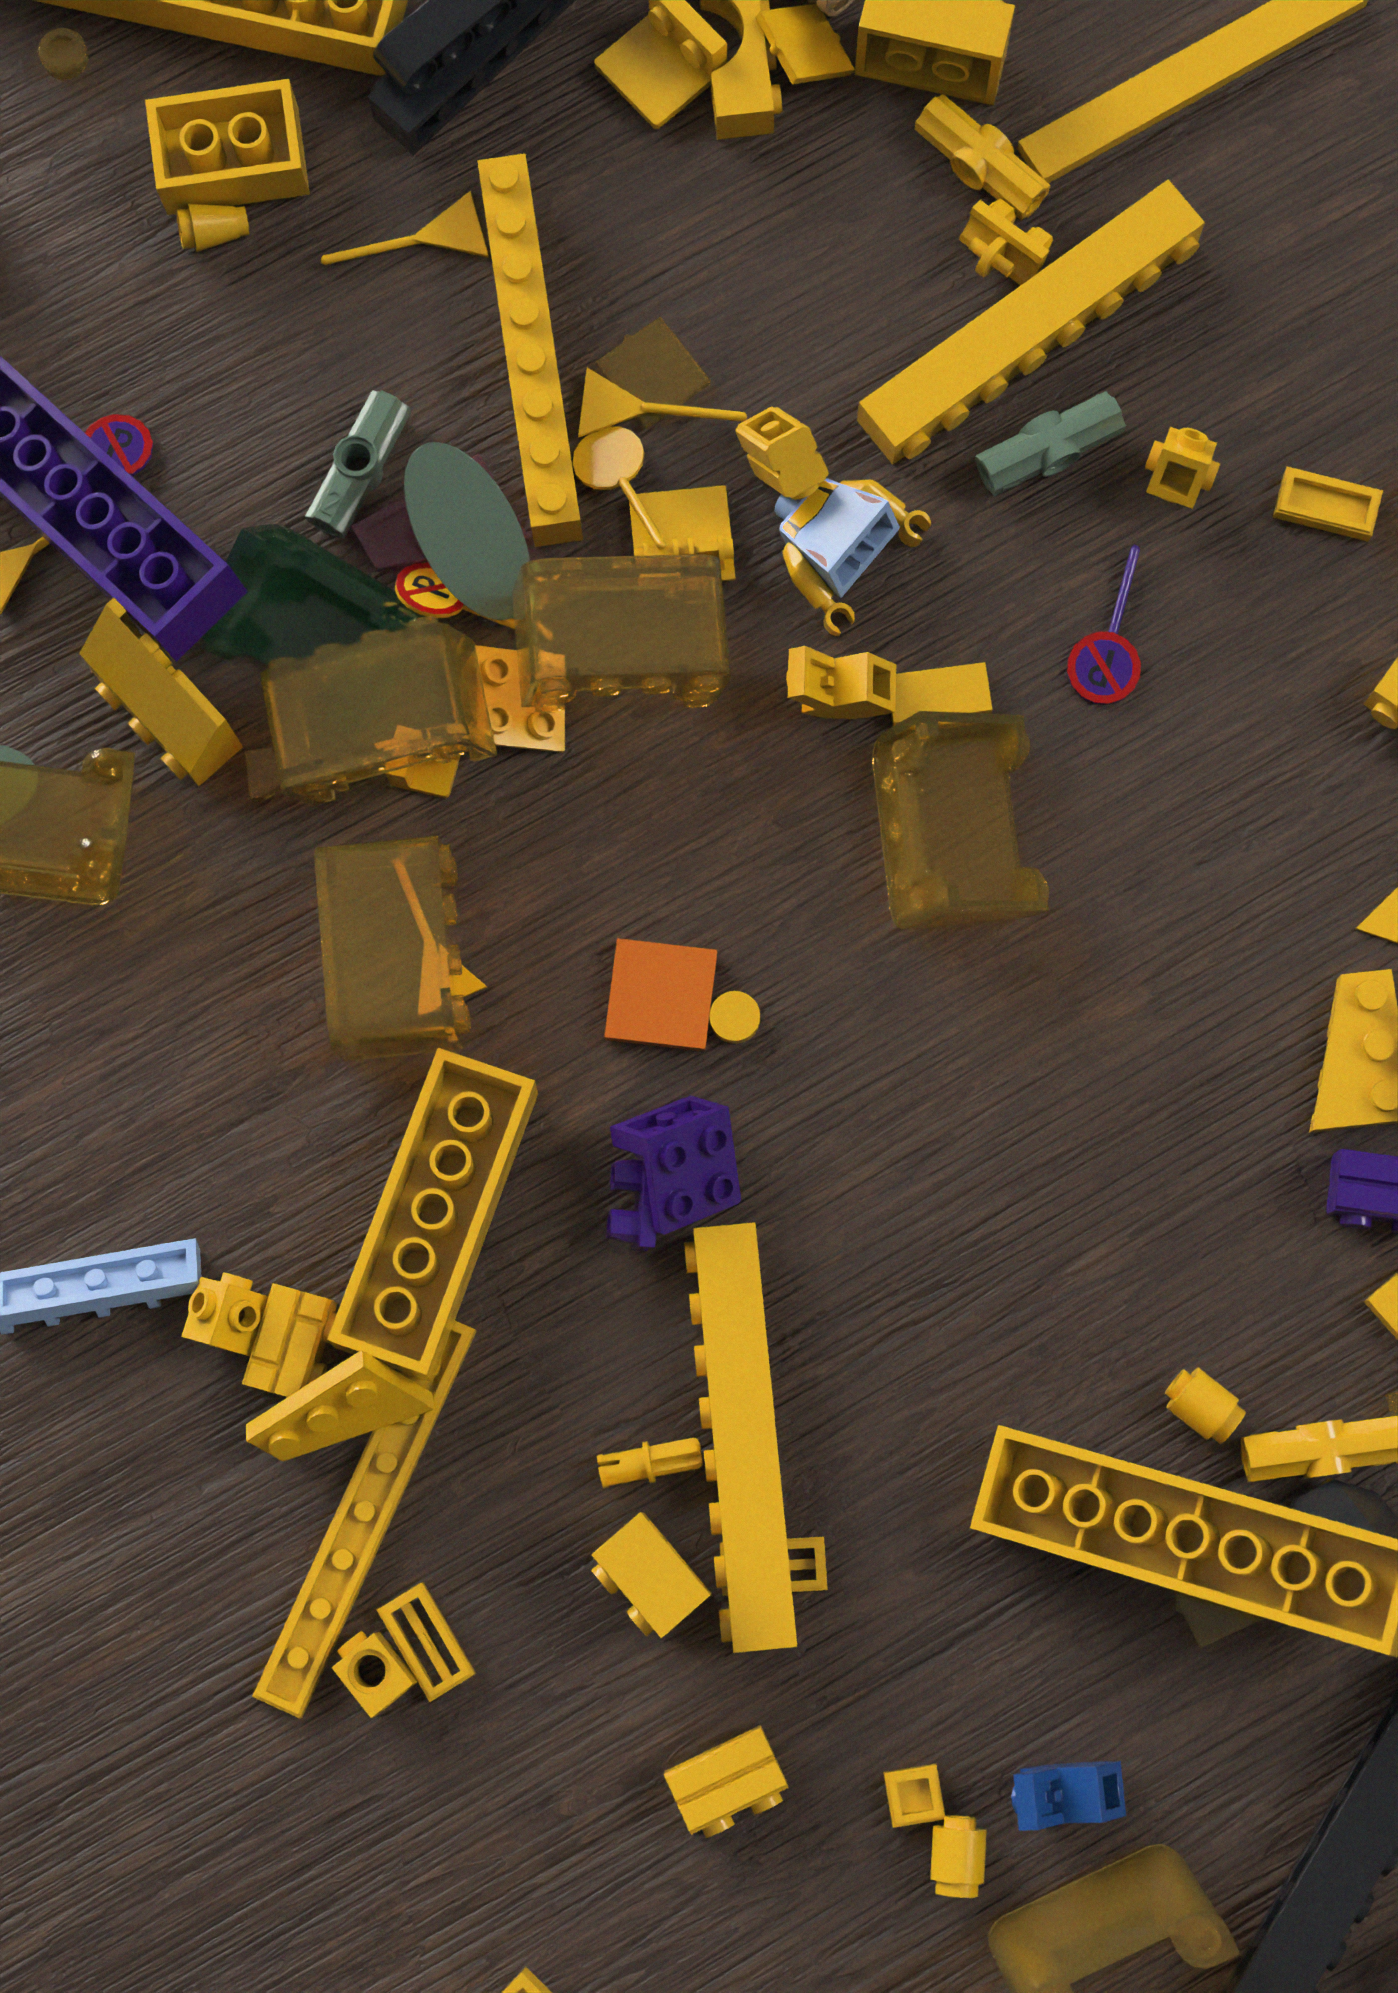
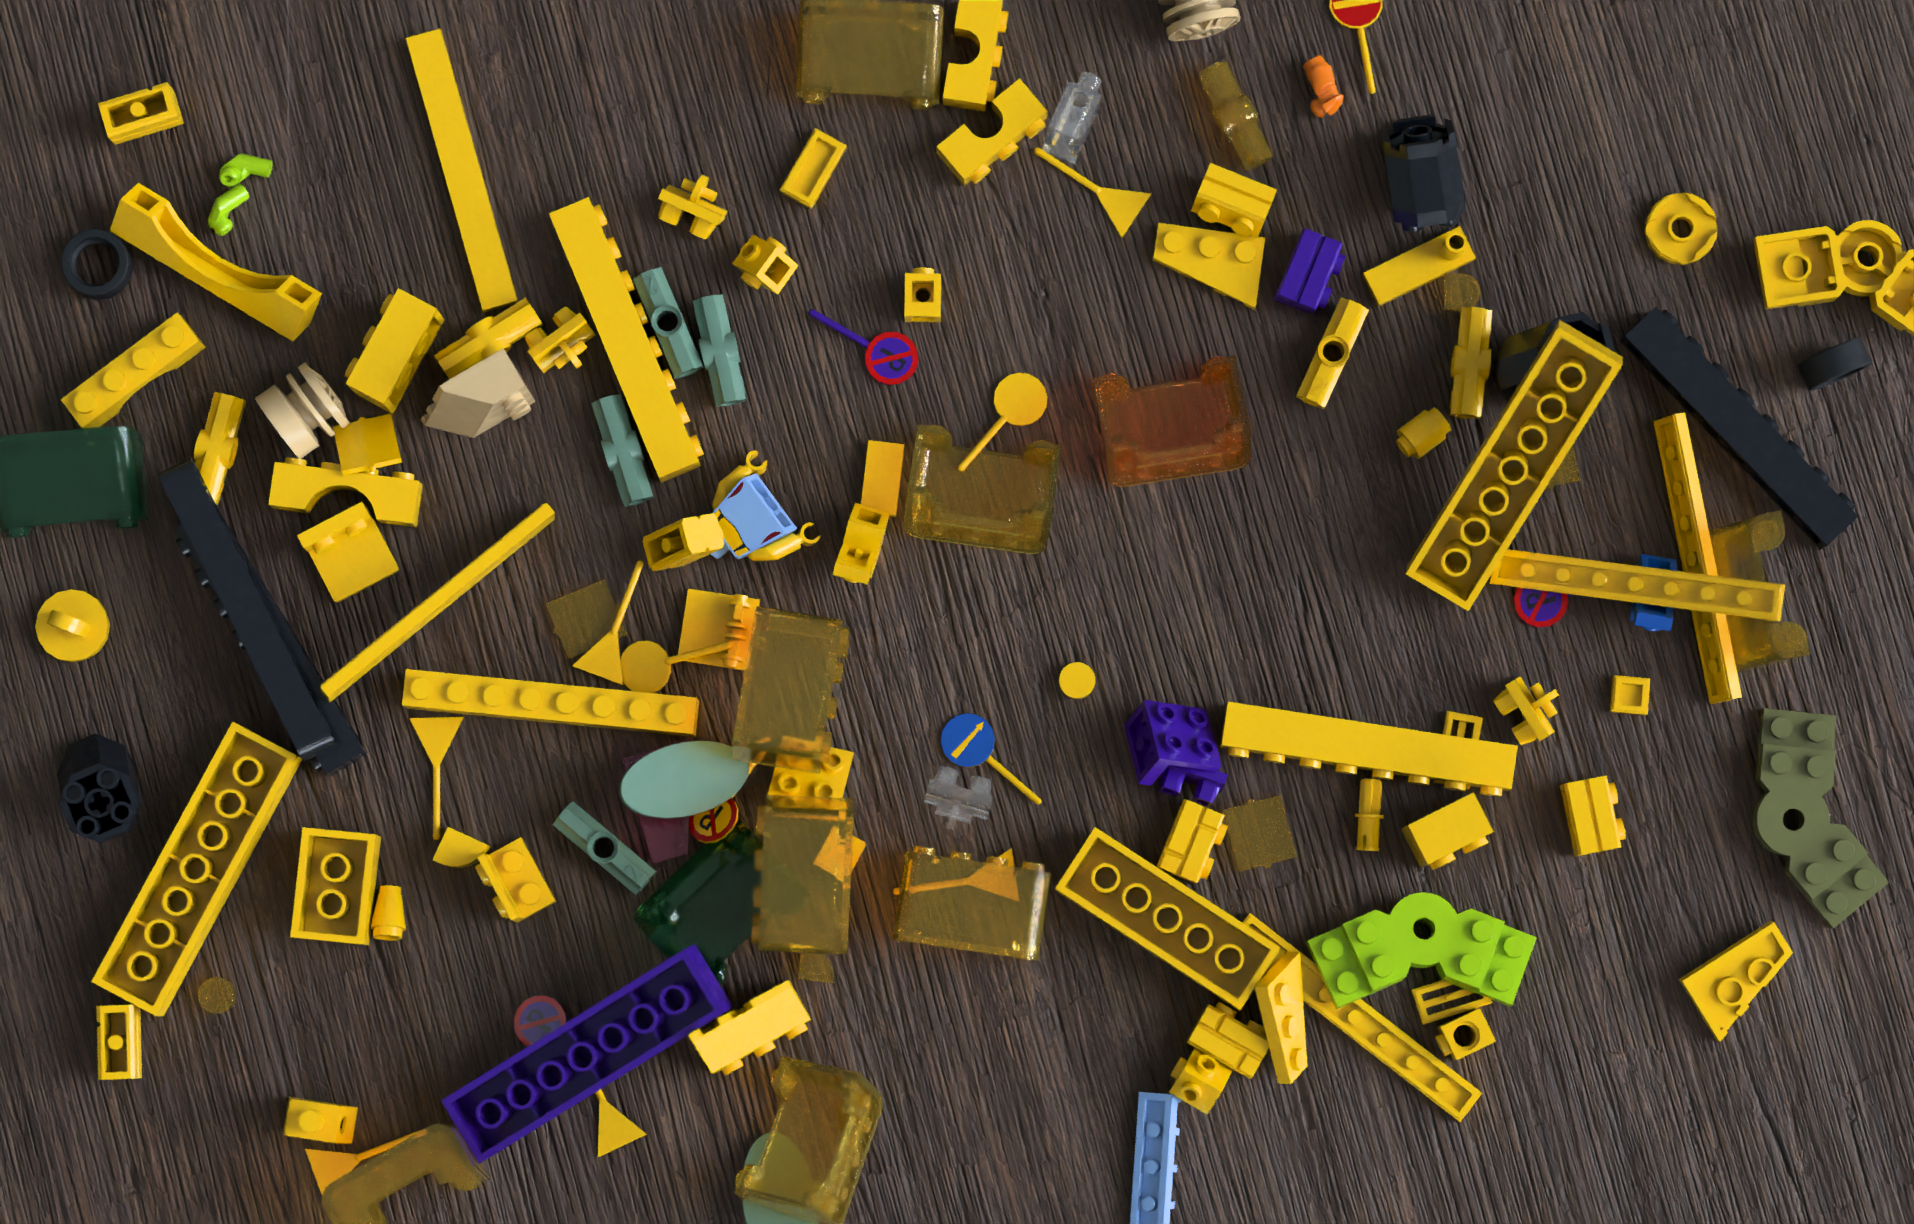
camera: 80 degrees left, 5 degrees up
(284, 359) = (515, 880): none -> yellow bracket
(314, 287) = (459, 850): none -> yellow brick
(494, 1645) = (1380, 948): none -> lime plate
(537, 877) = (956, 801): none -> clear hips
(551, 1224) = (1191, 842): none -> yellow brick
(588, 1317) = (1259, 833): none -> clear yellow piece
(616, 898) = (970, 741): none -> blue piece
(622, 172) = (437, 602): none -> yellow tile
(661, 994) = (1048, 727): orange tile -> none
(860, 1657) = (1519, 696): none -> yellow hips
(882, 355) = (622, 450): none -> sand green piece
(908, 155) = (479, 398): none -> tan wedge
(958, 1857) = (1676, 676): yellow brick -> none
(1016, 1638) = (1540, 607): none -> piece
(1074, 1774) = (1640, 584): none -> yellow tile
(1088, 351) = (659, 302): none -> sand green piece
(1091, 848) = (1017, 400): none -> yellow piece
(1115, 1055) = (1174, 425): none -> clear orange windscreen
(1135, 1847) = (1696, 553): none -> yellow tile
(1205, 665) = (919, 280): none -> yellow brick
(1232, 342) = (706, 214): none -> yellow hips
(1313, 1254) = (1340, 332): none -> yellow piece

